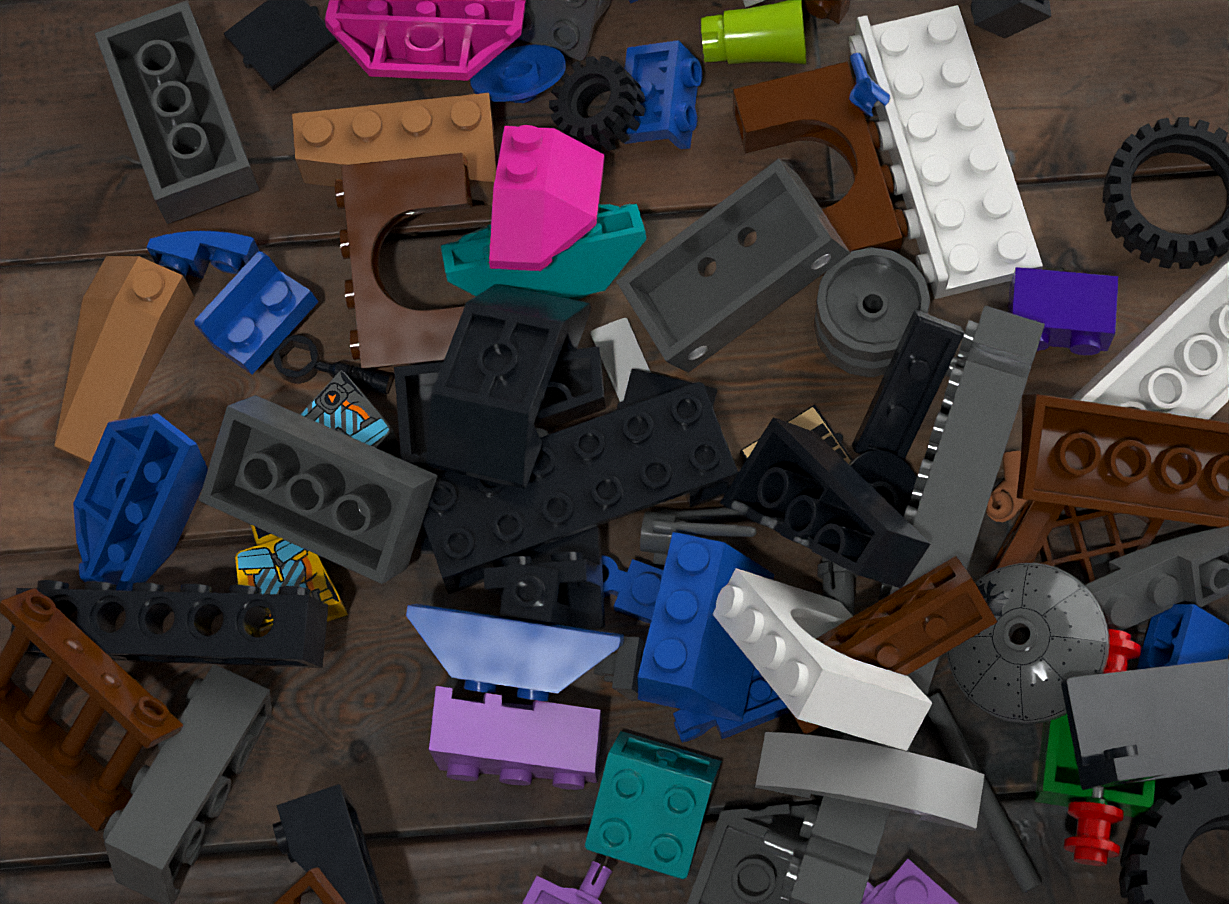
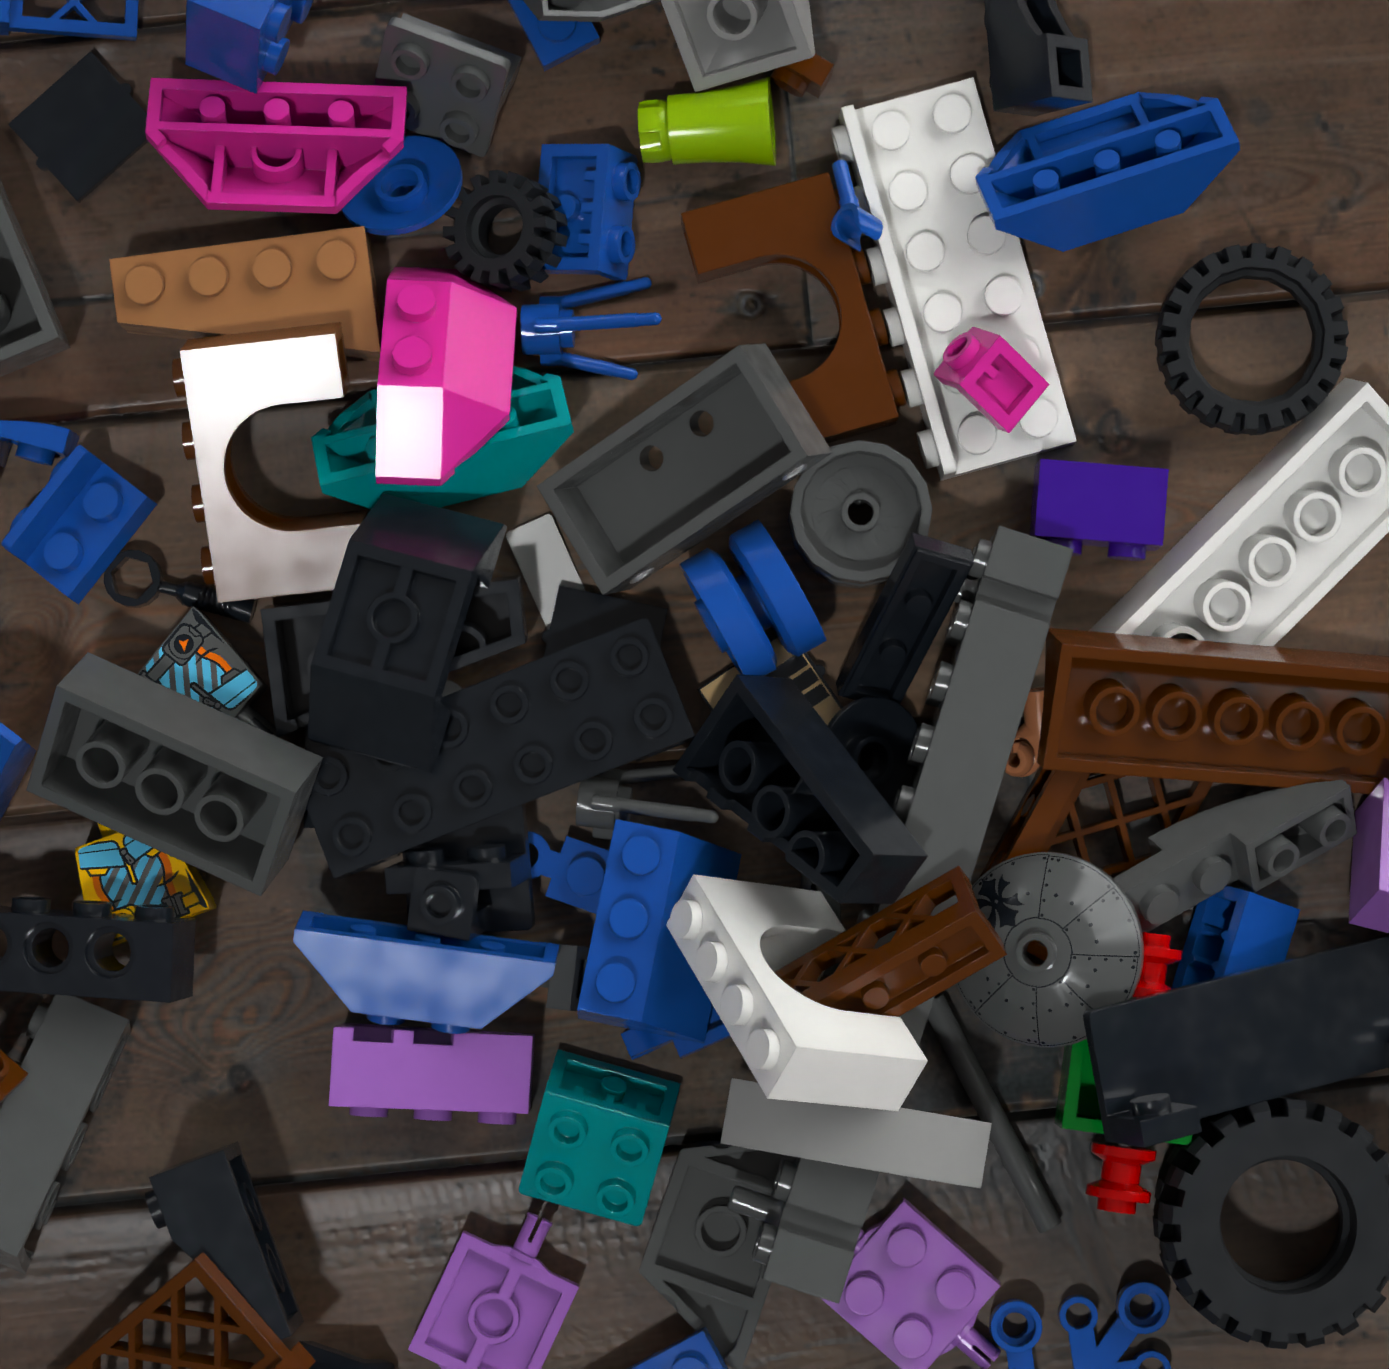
camera: 10 degrees left, 15 degrees up
(631, 177) = (550, 328): none -> blue plant
(786, 369) = (759, 598): none -> blue wheel
(976, 208) = (991, 376): none -> dark pink bracket
(1067, 67) = (1107, 168): none -> blue wedge

